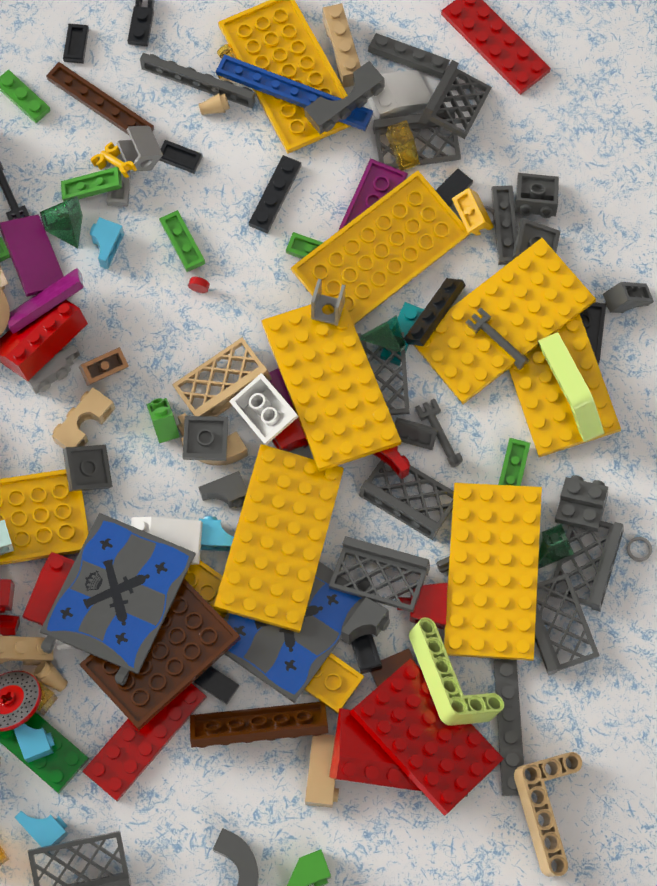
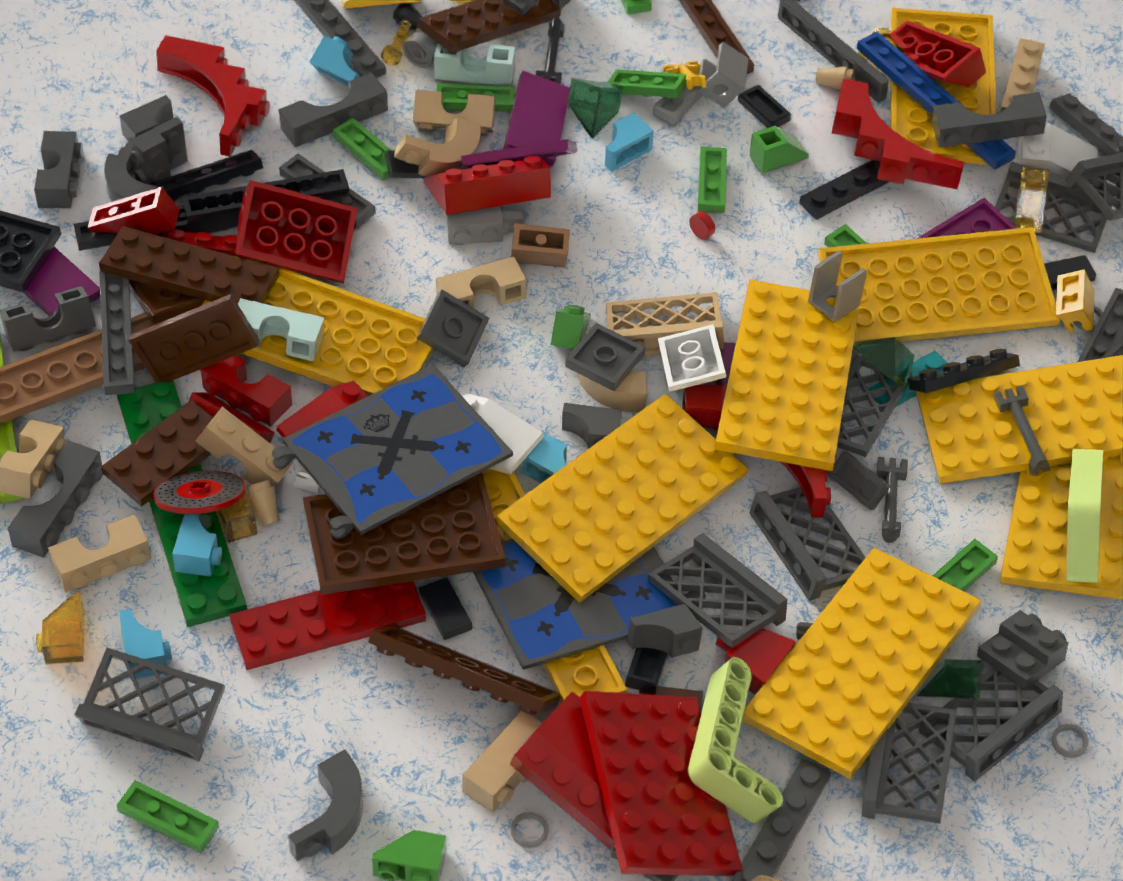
camera: 30 degrees right, 20 degrees down
(211, 192) = (775, 148): none -> bright green slope
(275, 151) = (878, 142): none -> red arch
(277, 54) = (940, 54): none -> red wedge
(361, 795) = (529, 815): none -> light grey piece

